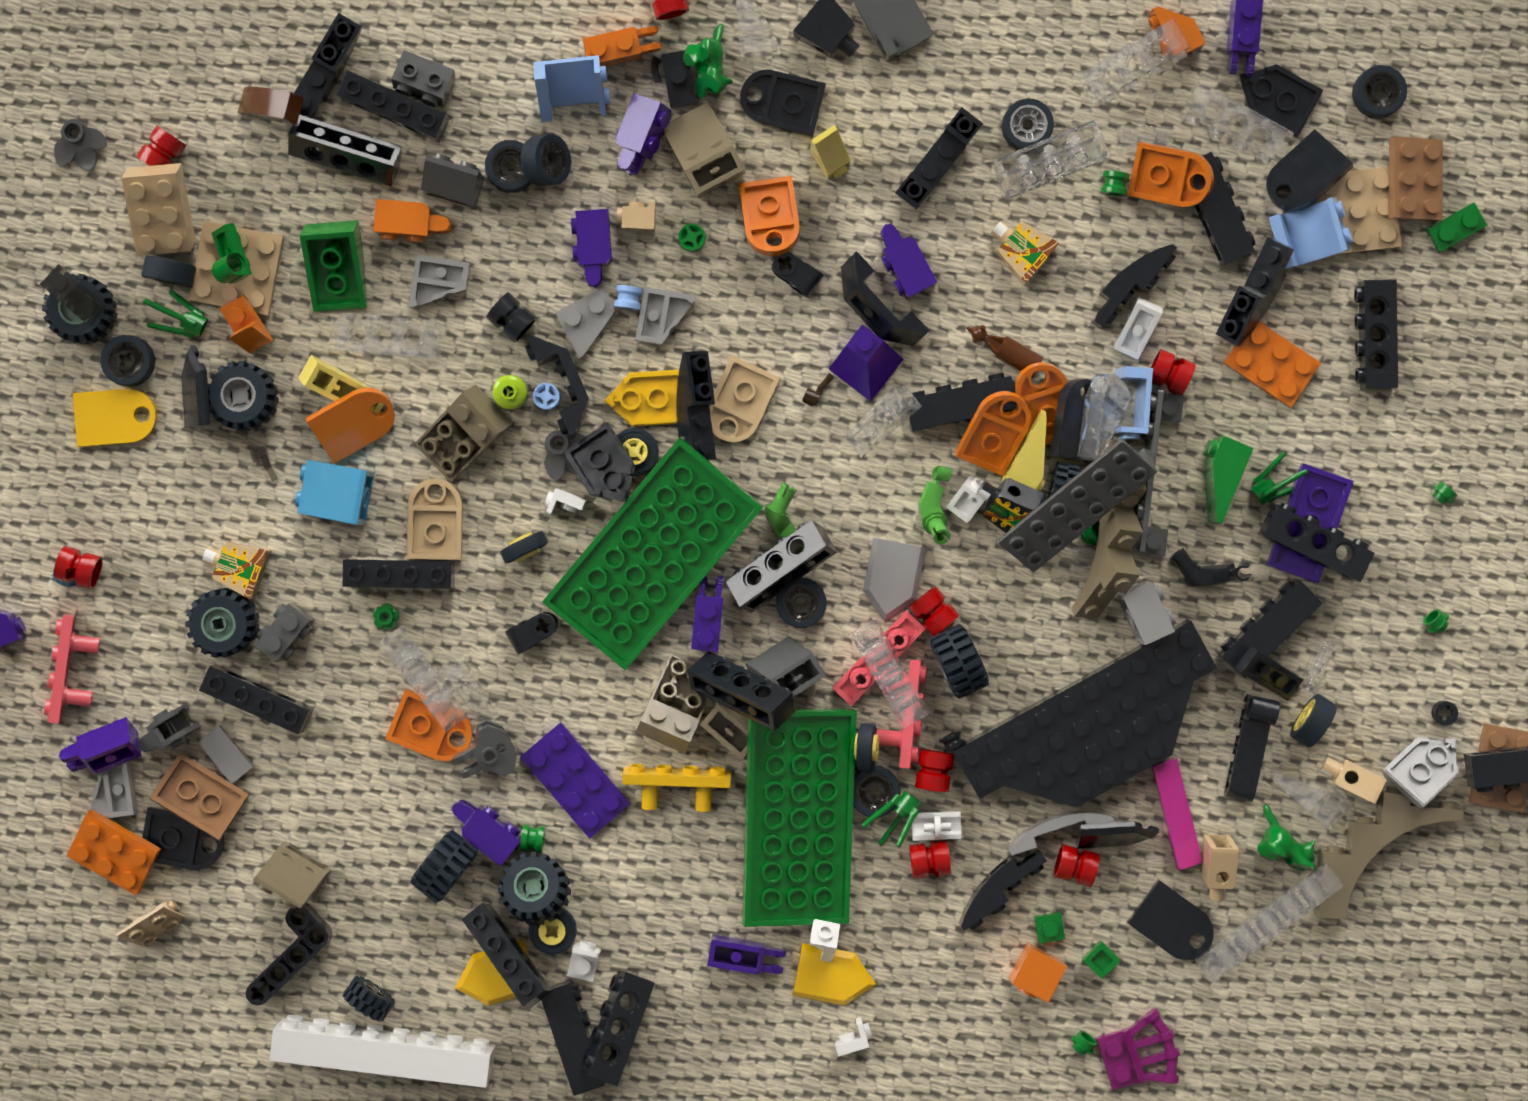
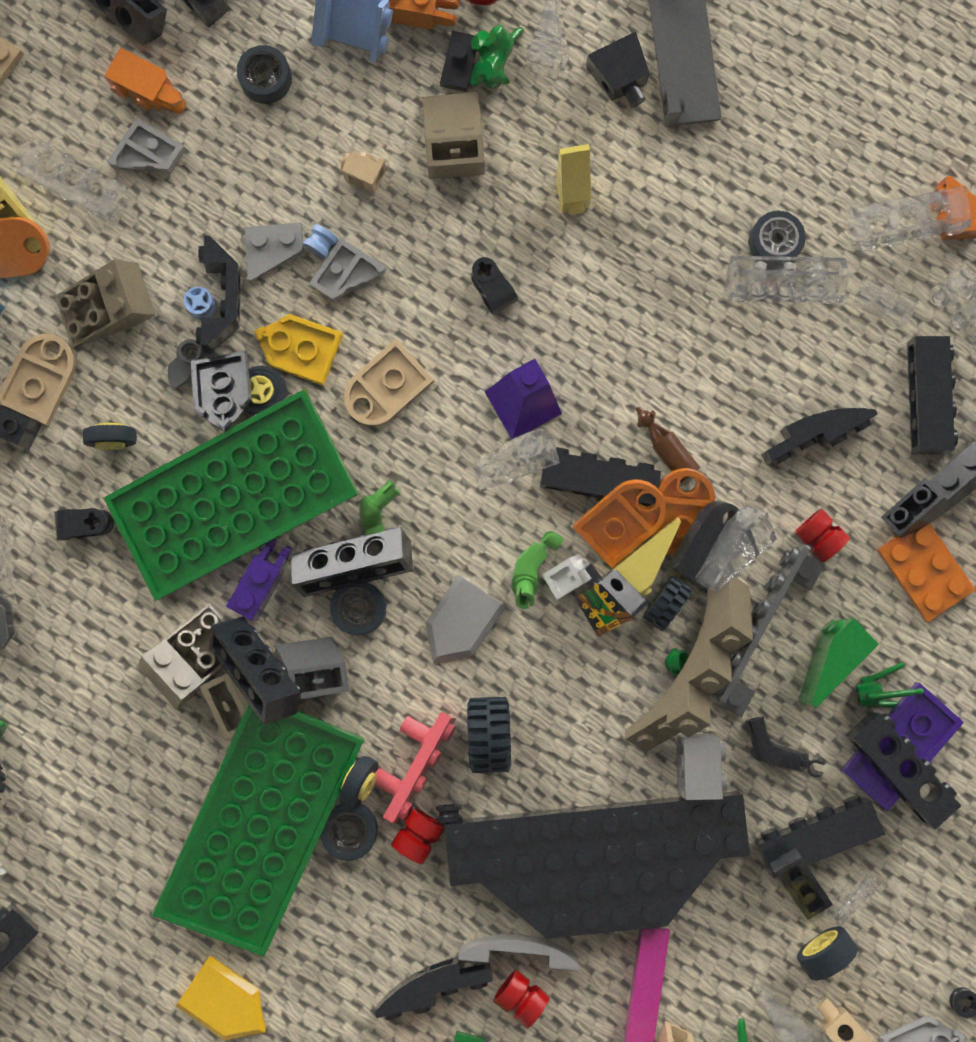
camera: 30 degrees right, 5 degrees down
(334, 265) = (55, 95): green slope -> none
(452, 181) = (200, 60): dark grey slope -> none
(511, 317) = (199, 213): black wheel -> none
(520, 392) = (165, 283): lime head -> none
(546, 160) = (301, 89): black wheel -> none
(569, 501) = (176, 412): white bracket -> none
(575, 780) = (58, 689): dark purple plate -> none
(593, 243) = (309, 176): dark purple hinge -> none
(641, 132) = (400, 91): hinge -> none
(656, 63) = (445, 39): black leg -> none
(687, 777) = (168, 734): yellow plate -> none
(690, 233) = (405, 205): green wheel -> none
(693, 402) = (338, 366): black slope -> none
(742, 955) = (140, 943): dark purple hinge -> none
(770, 212) = (493, 217): orange tile -> none
(786, 101) = (551, 121): black tile -> none
(811, 397) = (457, 412): dark brown hand -> none
(825, 937) = (230, 961): white bracket -> none
(858, 677) = (411, 697): coral plate -> none
(872, 310) = (555, 364): black slope -> none
(889, 673) = (412, 717): clear brick -> none
(906, 263) = (604, 320): dark purple hinge -> none
(906, 806) = (372, 862): green plant -> none
(930, 860) = (373, 926): red wheel -> none
(934, 611) = (486, 673): red wheel -> none
(937, 826) = (395, 894): white hips -> none
(939, 158) = (705, 219): black slope -> none
(1023, 249) = (724, 354): torso -> none
(1078, 504) = (677, 625): dark grey bracket -> none
(1113, 834) = (573, 983): black tile -> none
(1115, 183) = (840, 329): green wheel -> none
(1138, 327) = (806, 478): white plate -> none
(1143, 380) = (792, 528): light blue panel -> none
(1167, 175) = (896, 341): orange tile -> none
(1250, 747) = (751, 951): black beam -> none

